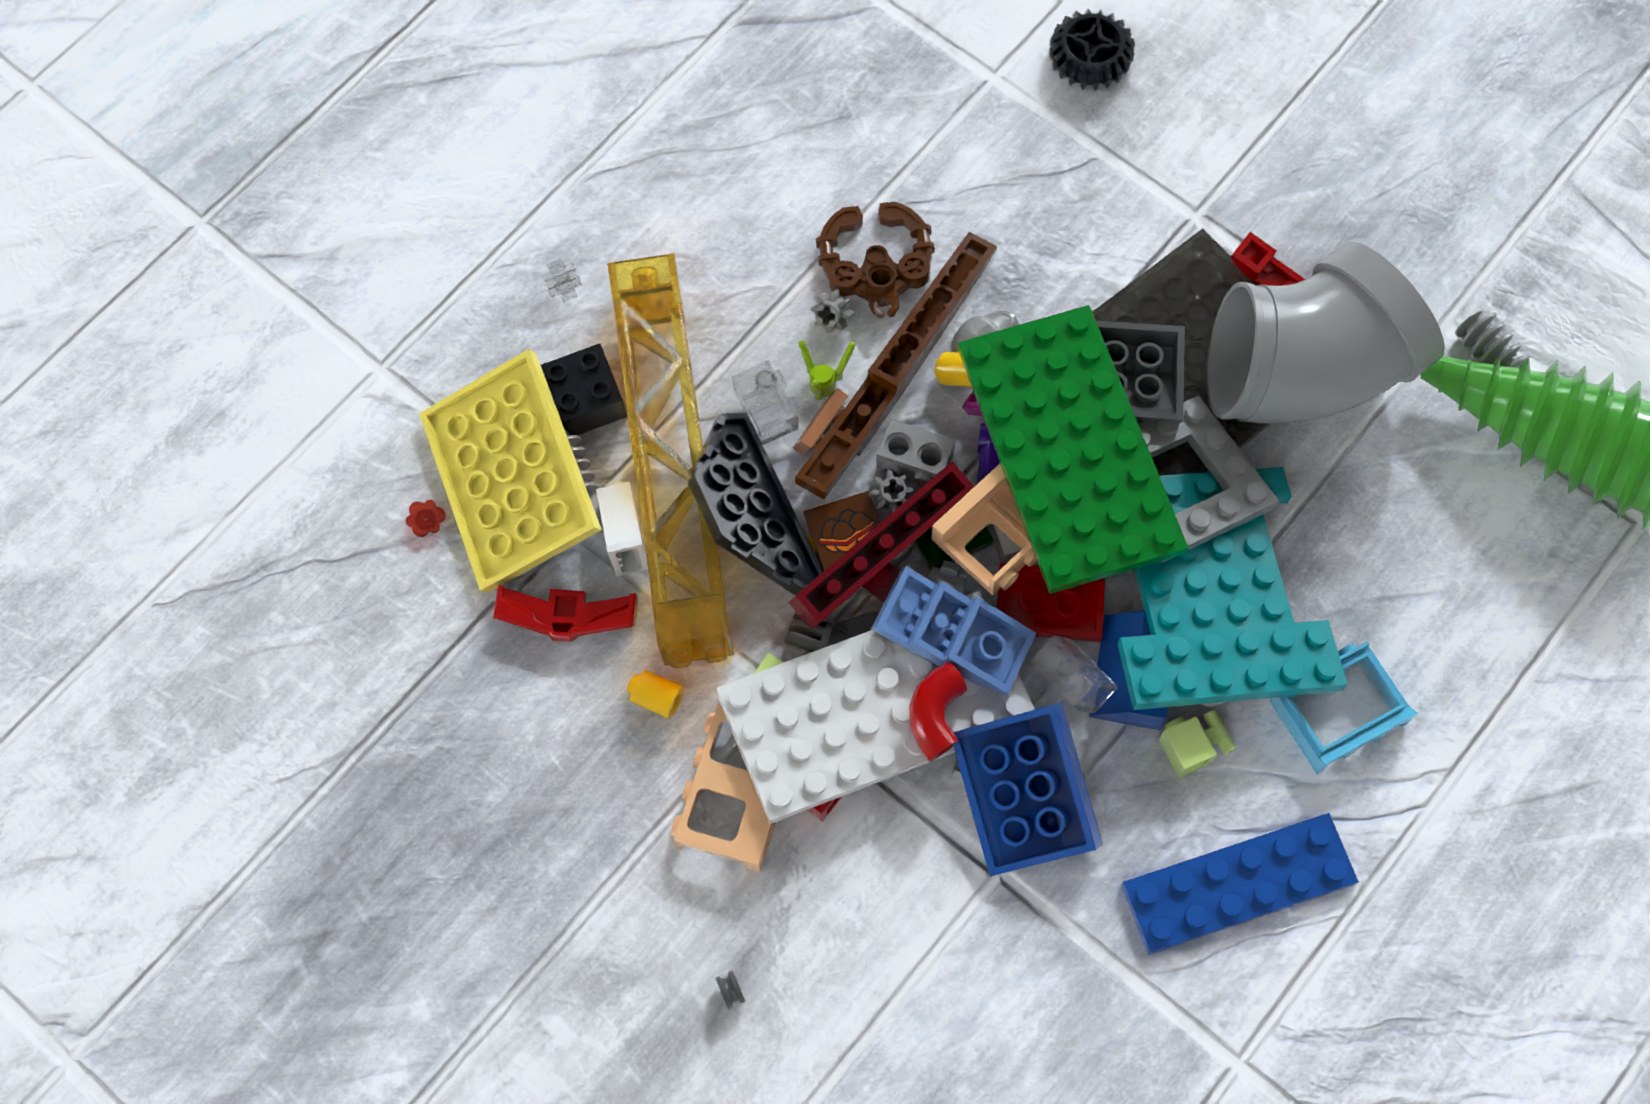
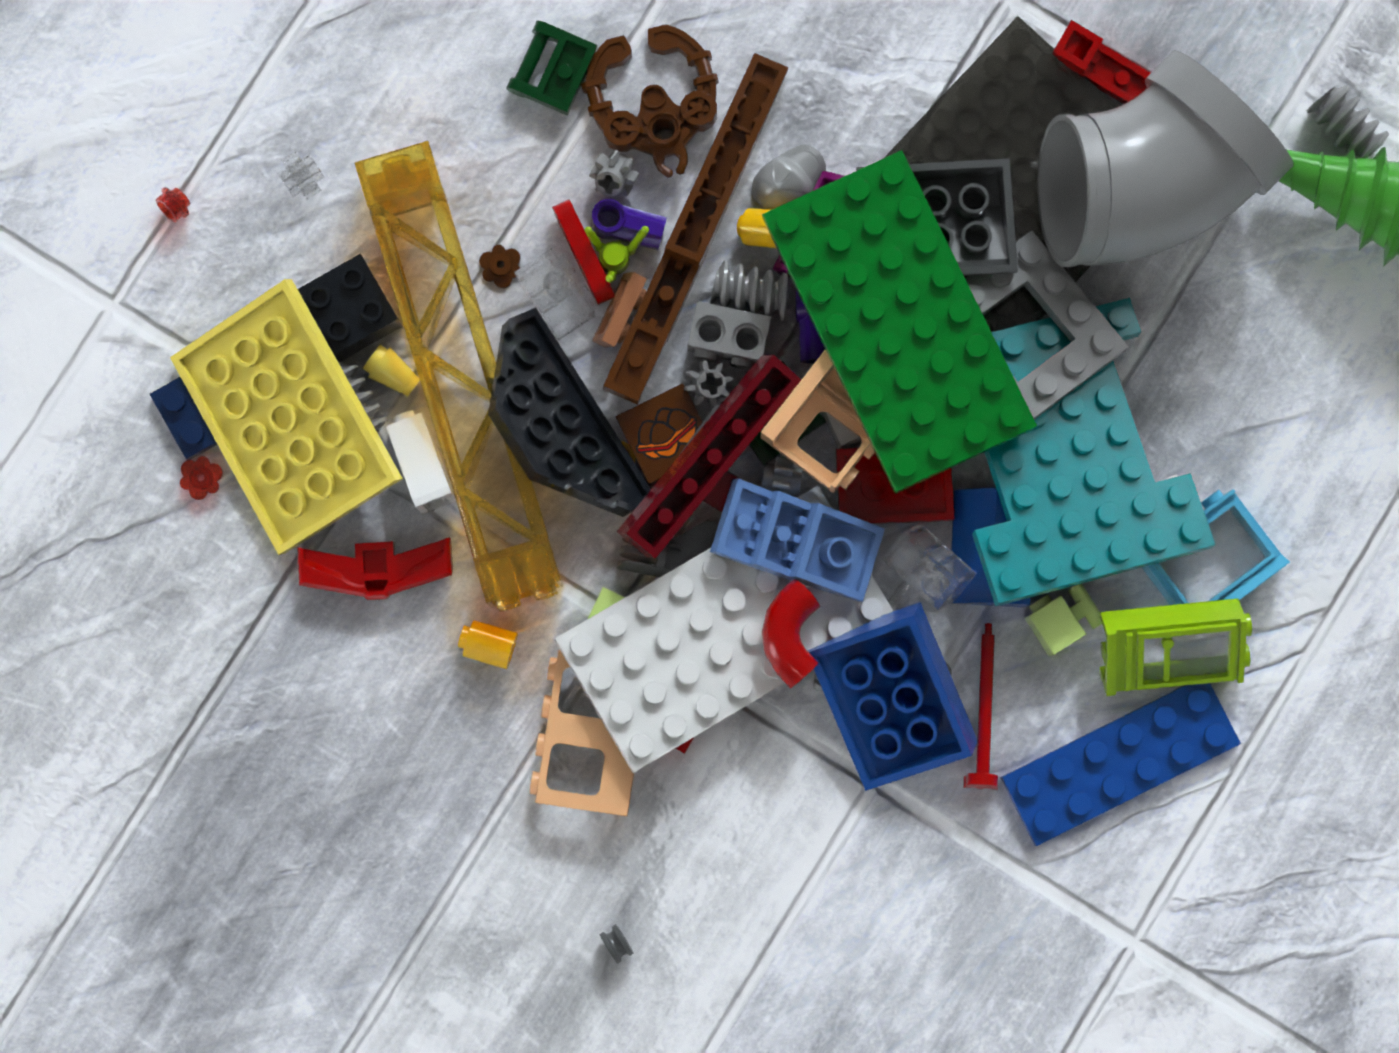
camera: 15 degrees left, 15 degrees up
(420, 467) = (183, 419): none -> dark blue plate
(448, 292) = (173, 203): none -> clear red plate
(608, 447) = (390, 370): none -> light yellow cone
(720, 384) = (501, 276): none -> reddish brown plant
(796, 371) = (583, 252): none -> red beam
(800, 229) = (563, 72): none -> dark green plate
(858, 362) = (629, 223): none -> dark purple piece
(940, 418) = (751, 290): none -> light grey piece
(1104, 878) = (982, 777): none -> red piece
(1302, 776) = (1174, 645): none -> lime door

